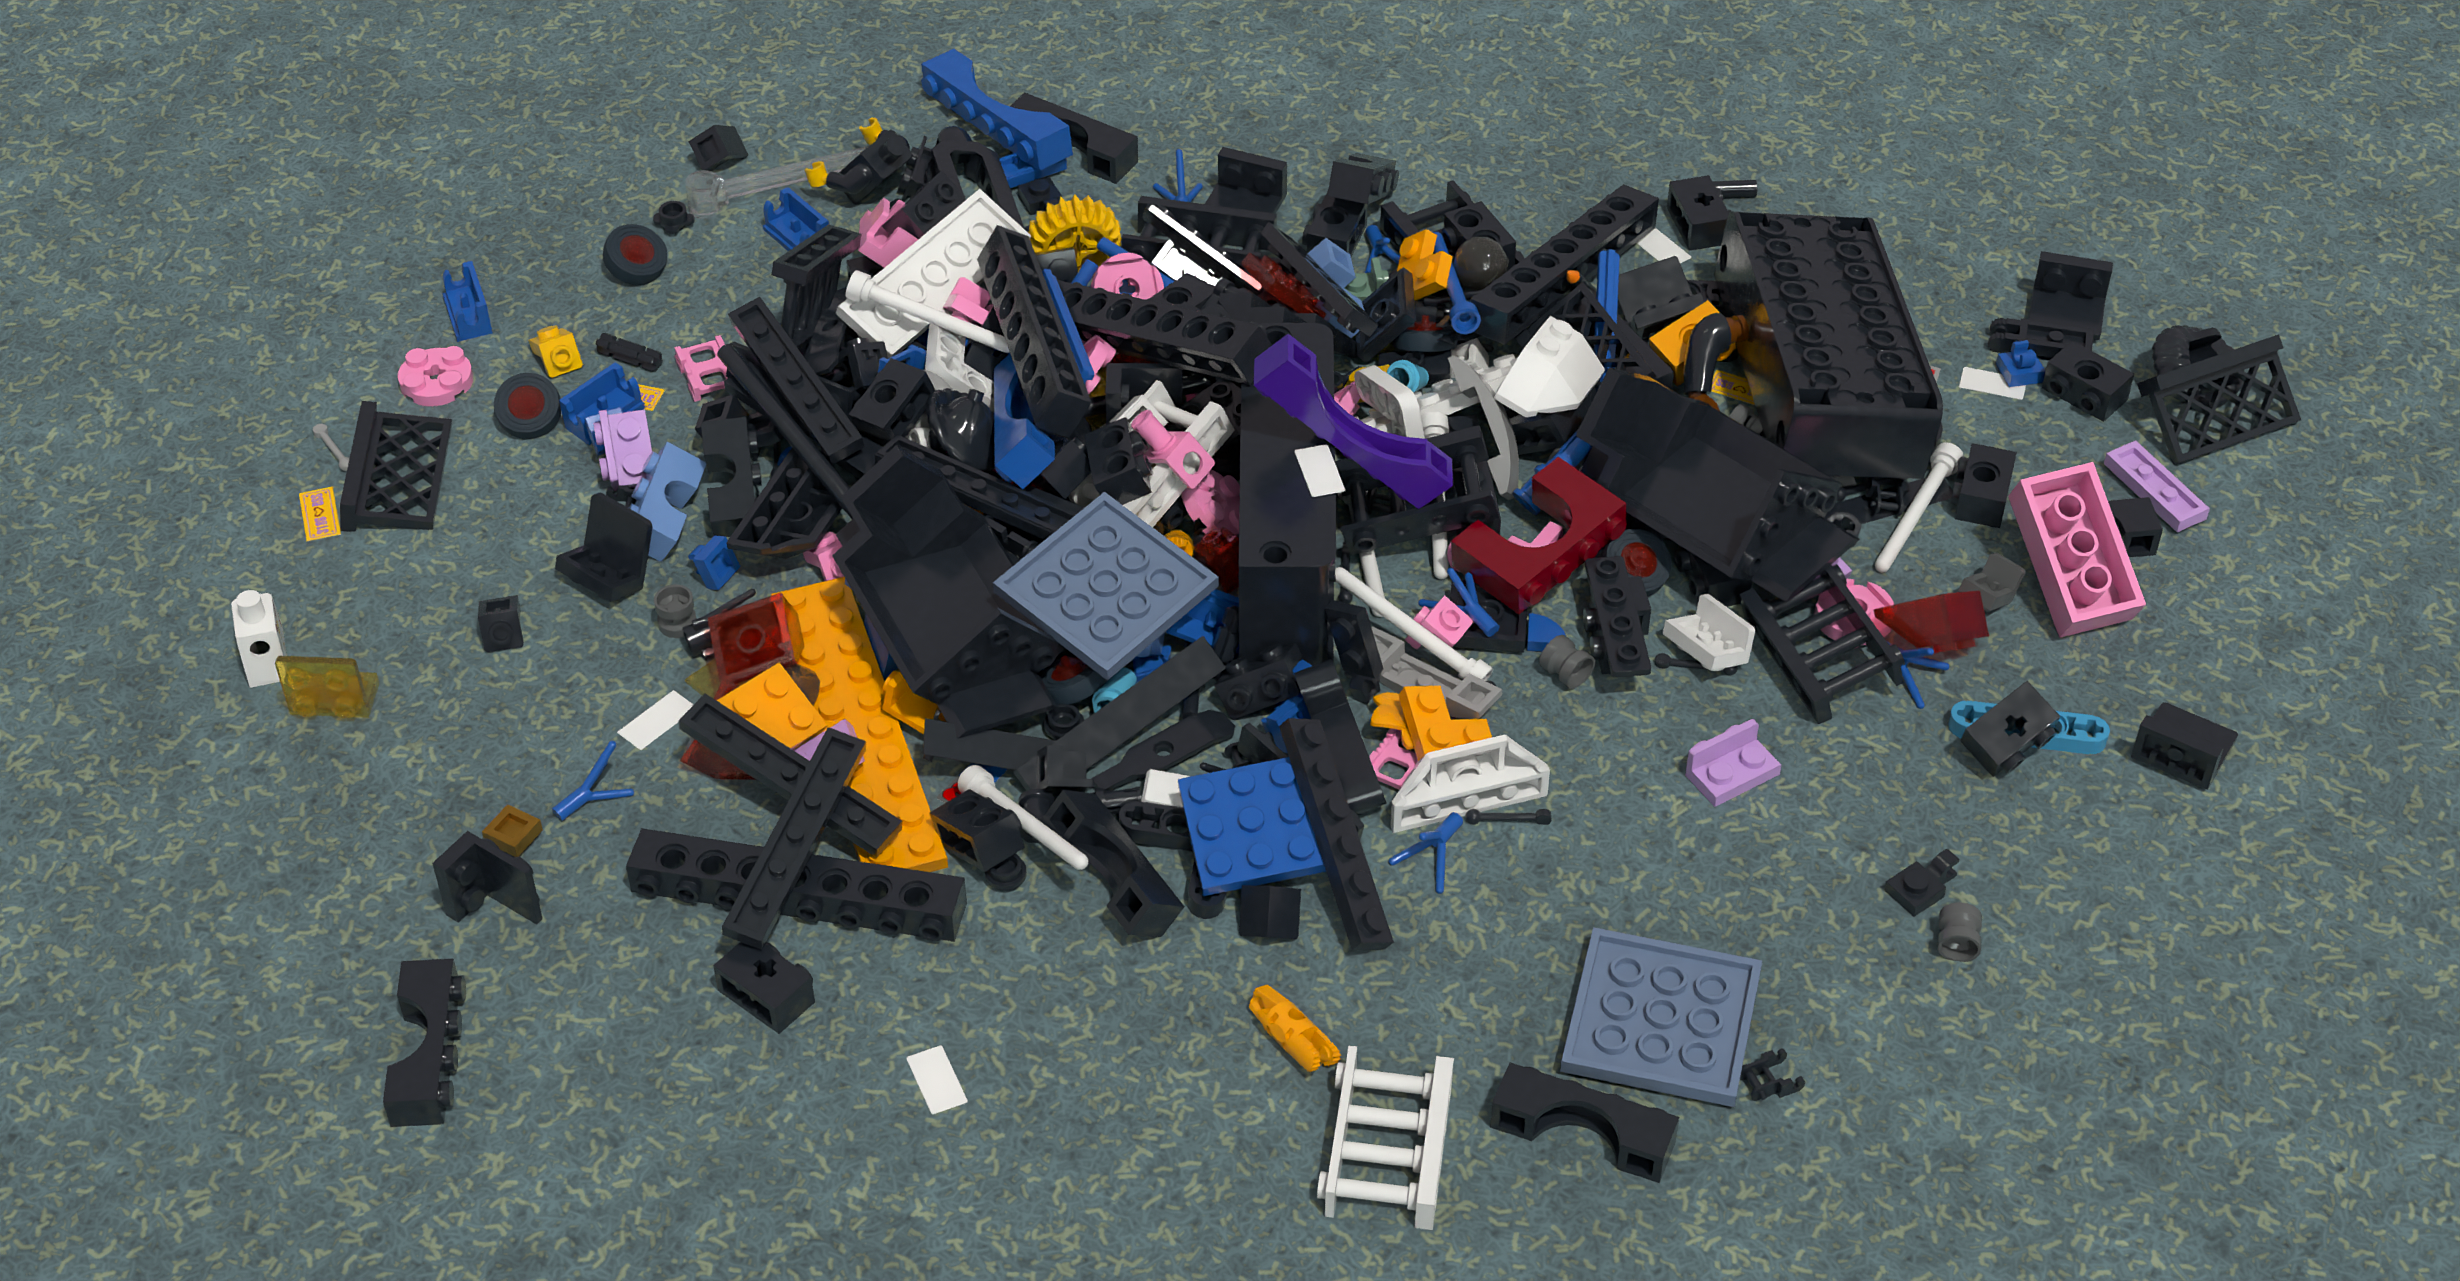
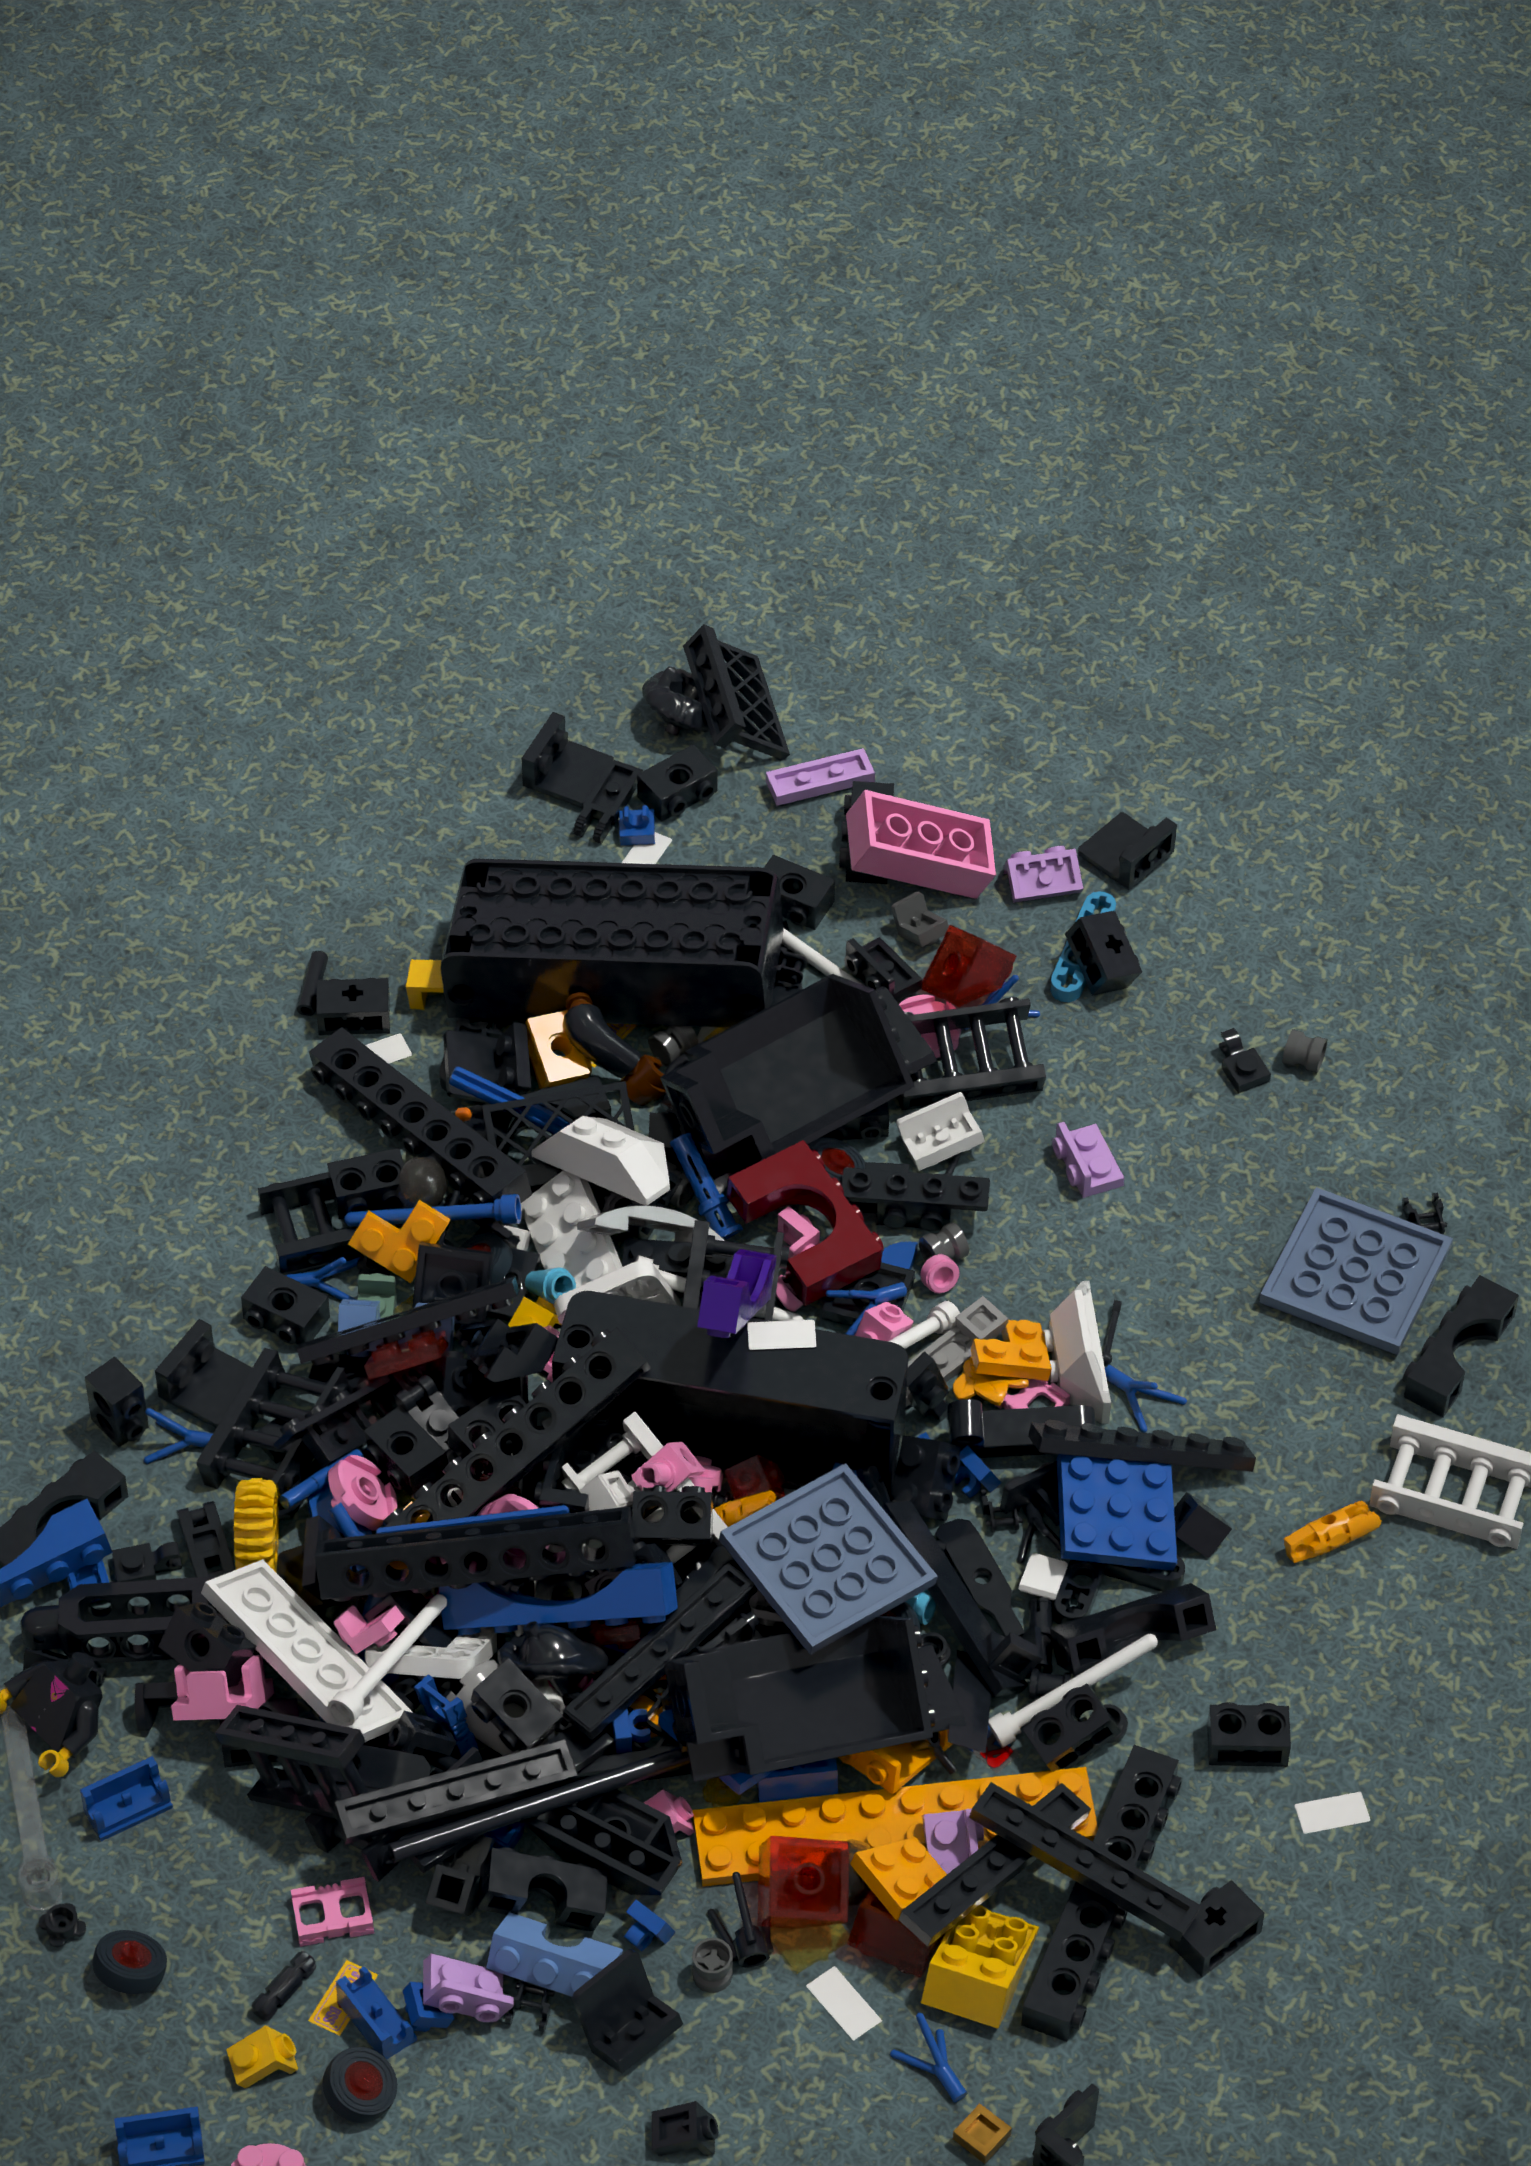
camera: 80 degrees left, 5 degrees up
(702, 798) = (979, 1966): none -> yellow slope
(1008, 983) = (1249, 1743): none -> black brick
(1194, 131) = (117, 1402): none -> black brick
(1362, 178) = (257, 1257): black arch -> none
(1530, 662) = (939, 1273): none -> bright pink tile
(1910, 563) = (881, 966): none -> black bracket
(2109, 677) = (1043, 874): none -> lavender bracket

